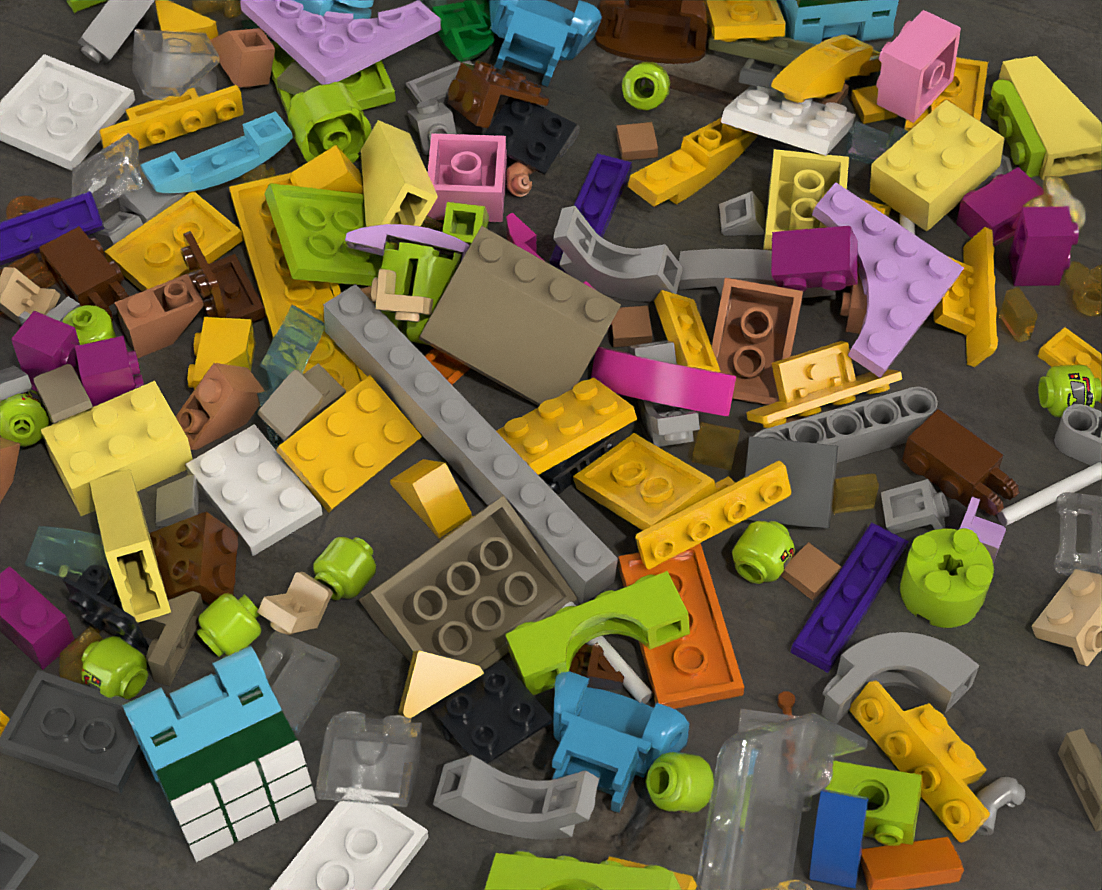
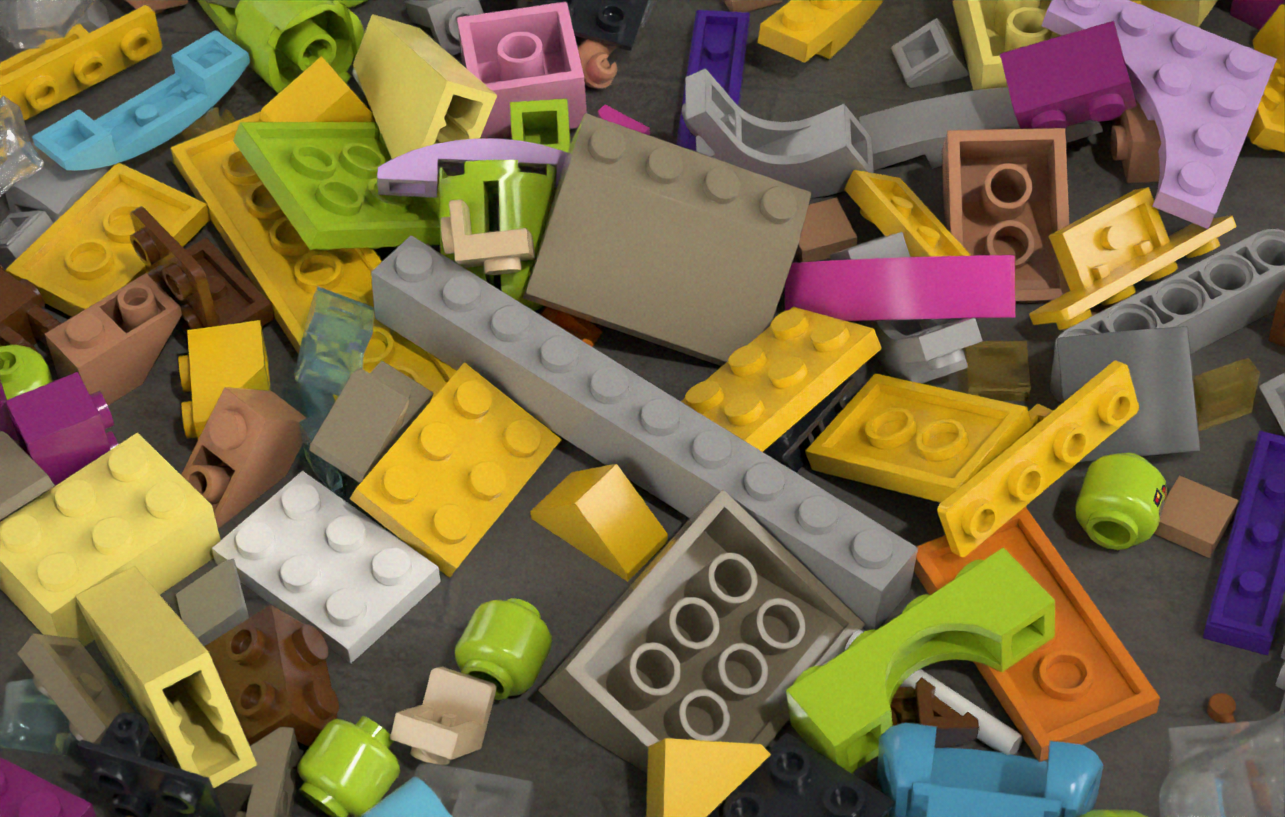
camera: 10 degrees left, 5 degrees down
(76, 538) = (75, 683): none -> dark tan plate

